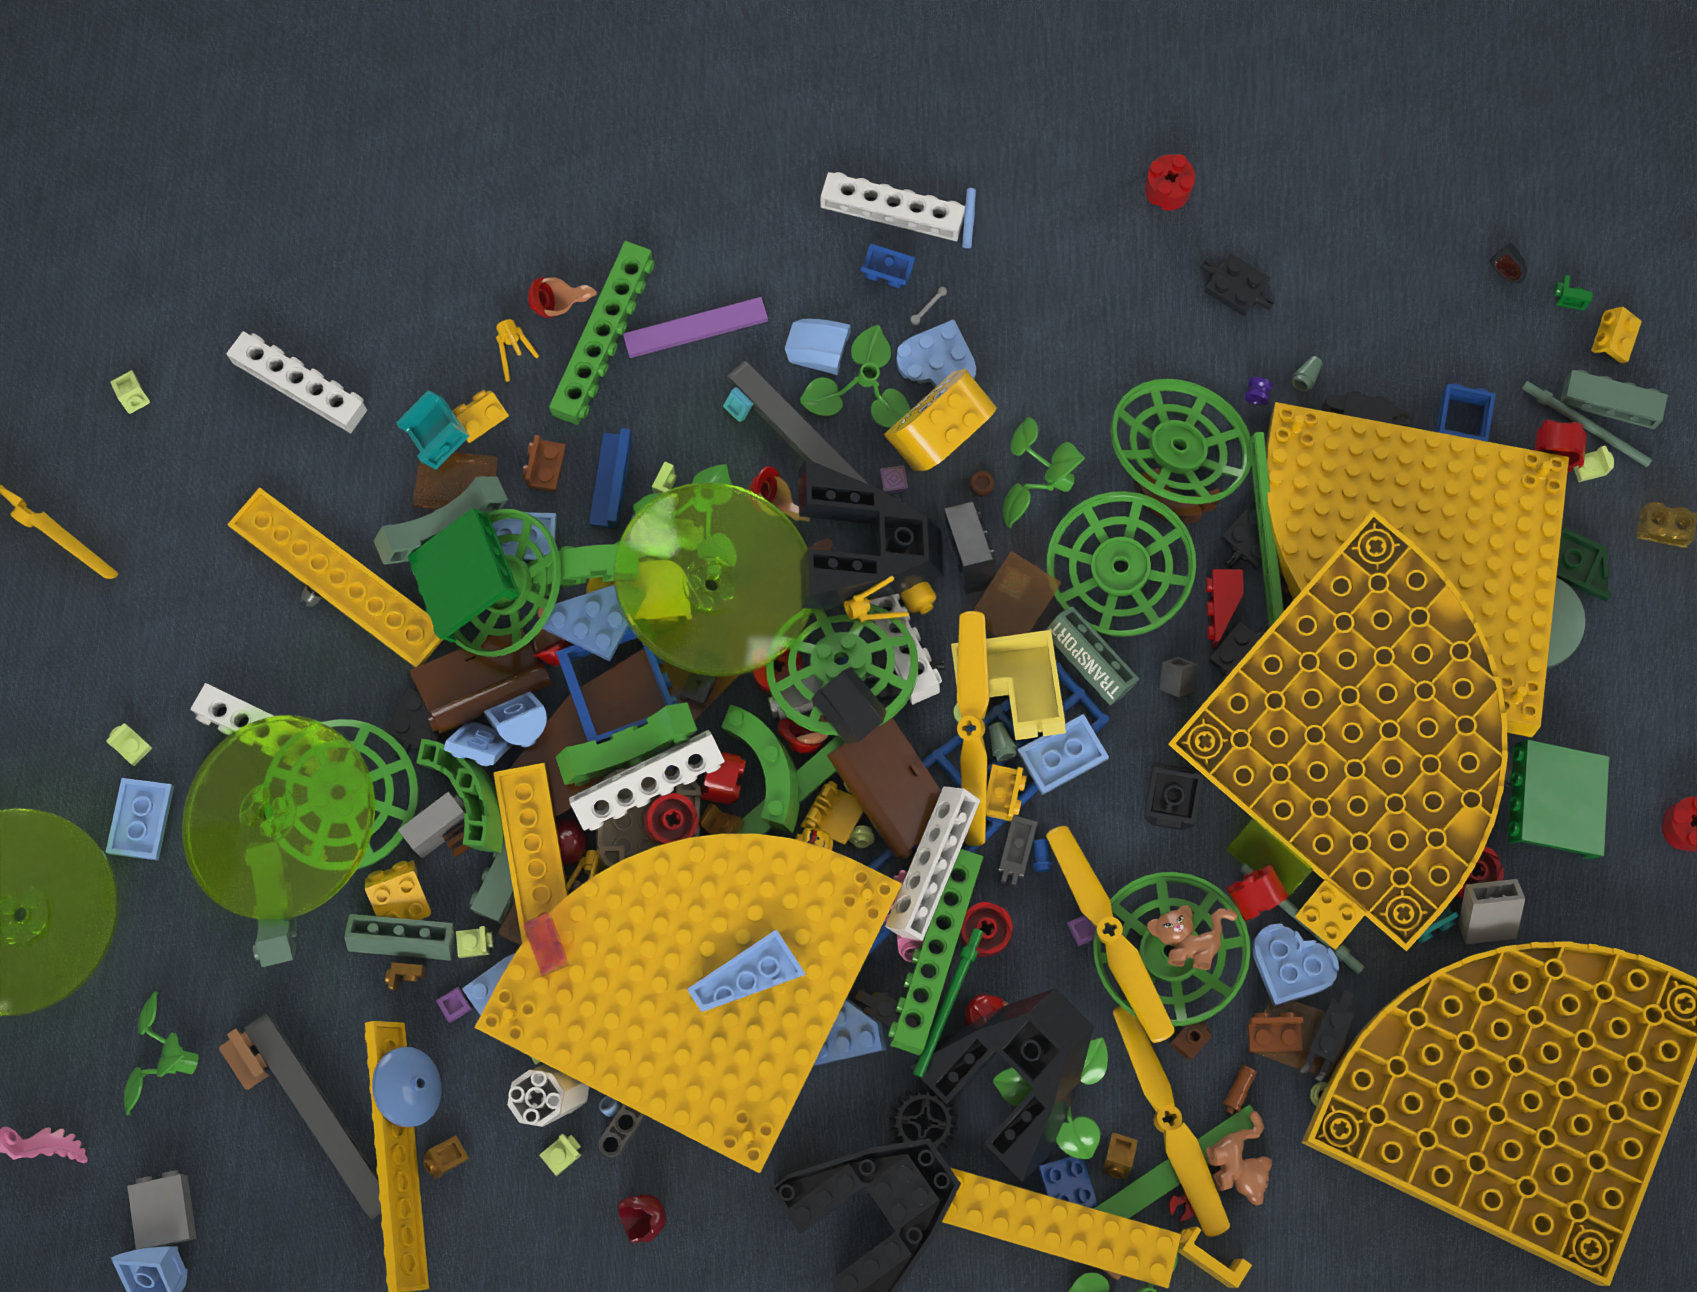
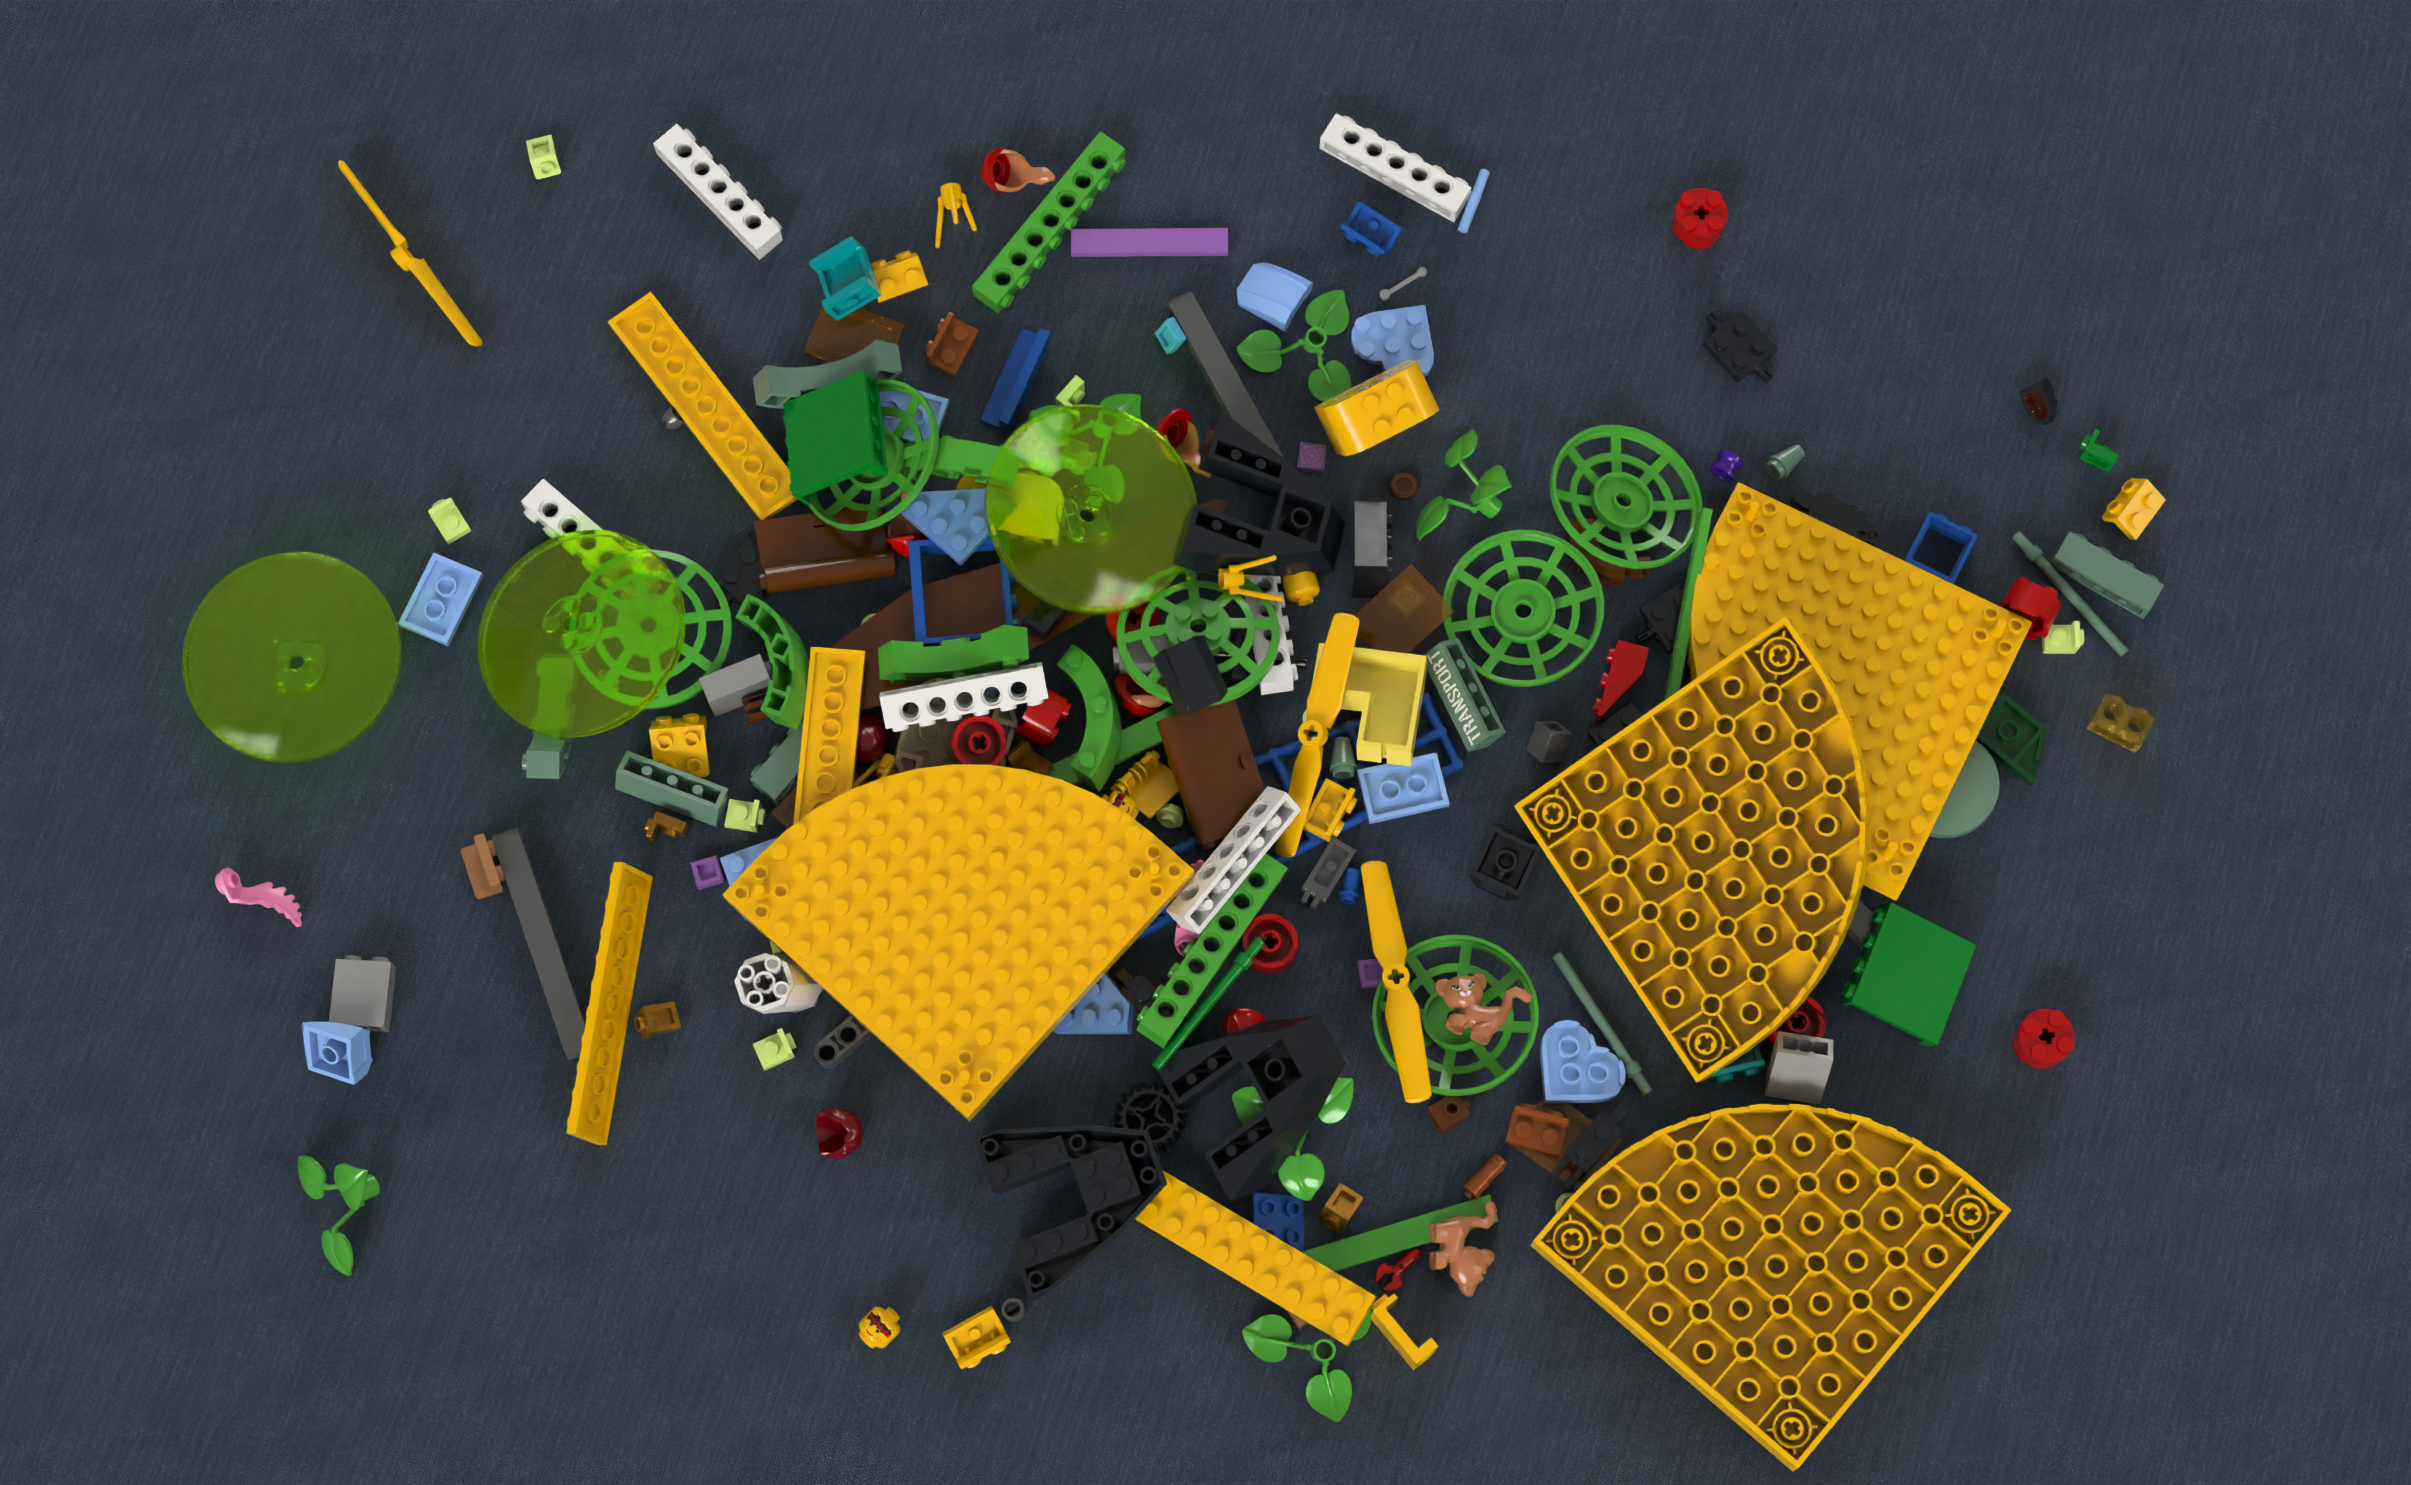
camera: 15 degrees right, 0 degrees up
(171, 1059) = (413, 844): bright green plant -> none
(397, 1089) = (629, 942): medium blue dish -> none
(477, 743) = (805, 614): light blue plate -> none
(518, 719) = (851, 600): light blue brick -> none
(546, 944) = (816, 831): clear pink hinge -> none
(609, 1106) = (836, 1015): light blue hinge -> none
(753, 970) = (1015, 914): light blue wing -> none
(1179, 1141) = (1406, 1212): yellow piece -> none
(1257, 892) = (1561, 981): red brick -> none
(1260, 848) = (1586, 952): clear neon green piece -> none
(1330, 914) = (1631, 1025): yellow hinge -> none

